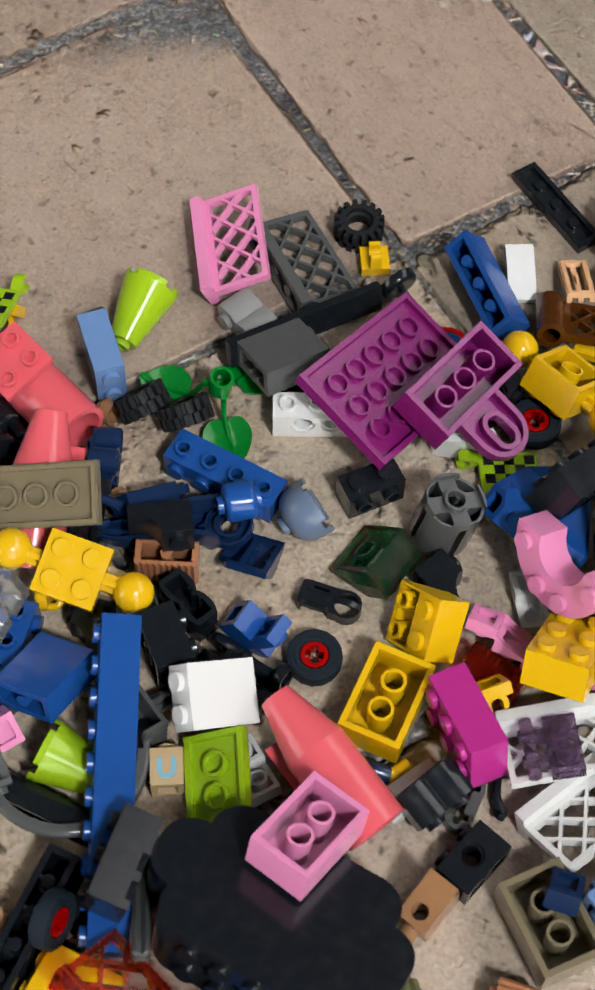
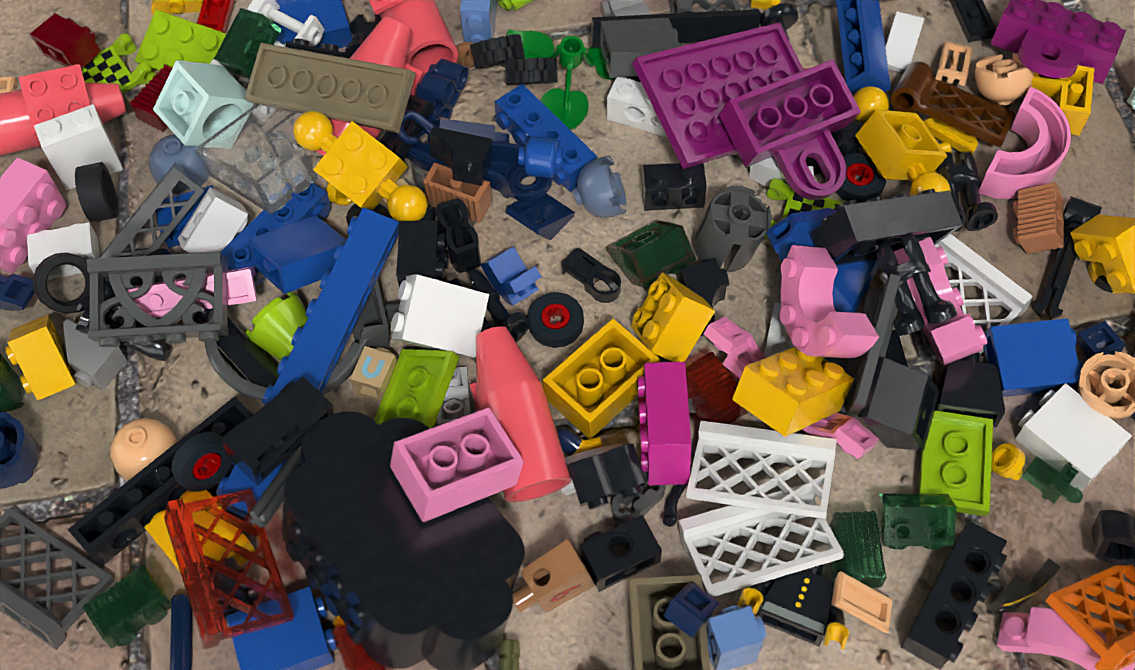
camera: 25 degrees right, 0 degrees up
(496, 688) = (704, 397): yellow tile -> none
(562, 745) = (751, 471): clear purple plate -> none

